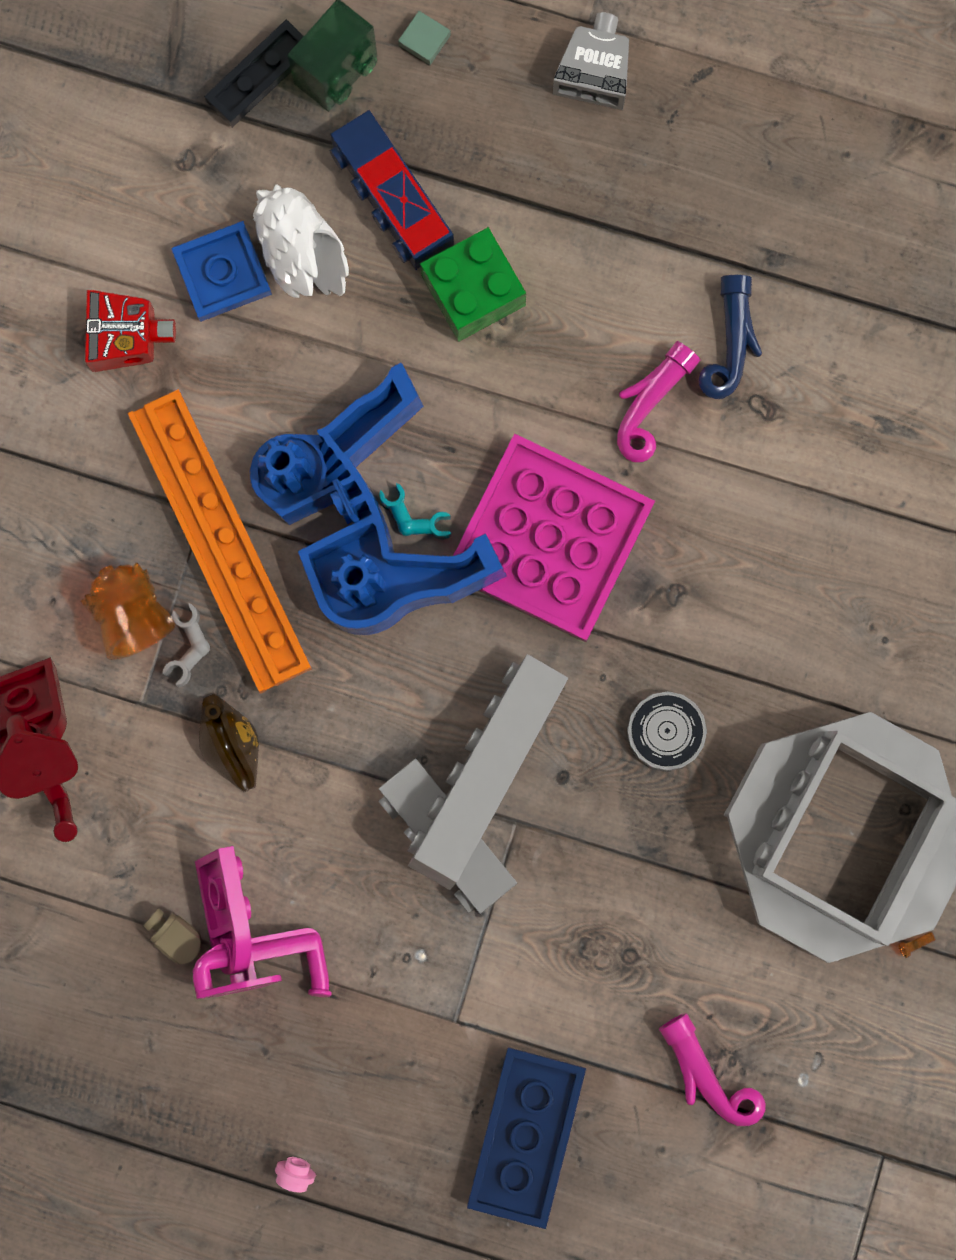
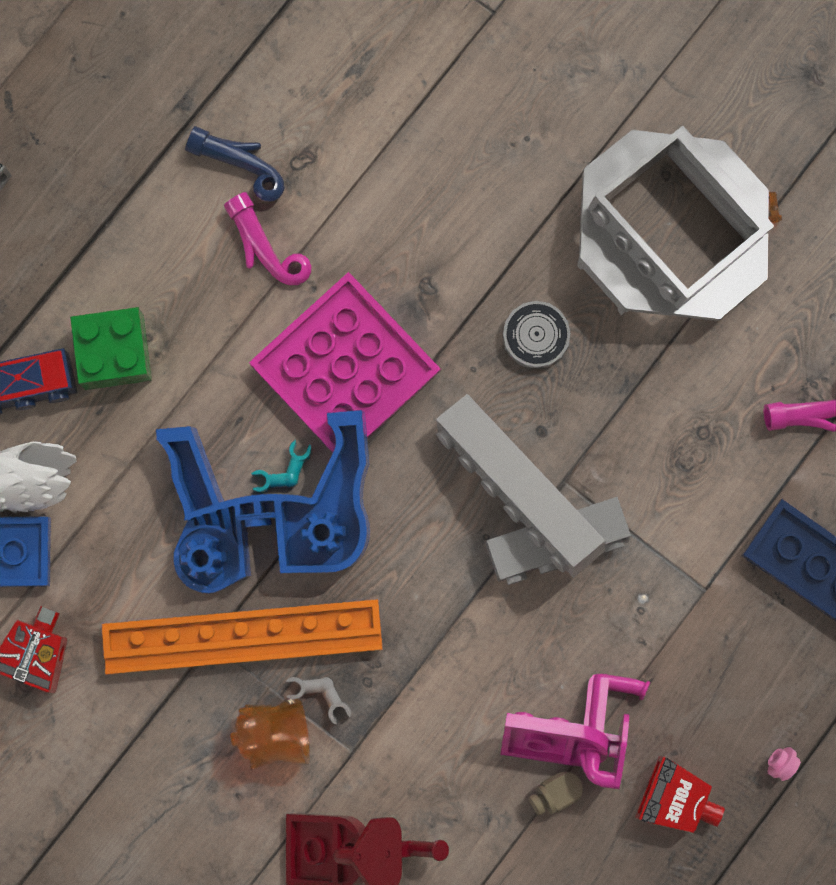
camera: 75 degrees left, 0 degrees up
(213, 1071) = (677, 799): none -> red torso
(229, 742) = (412, 691): dark brown hat -> none

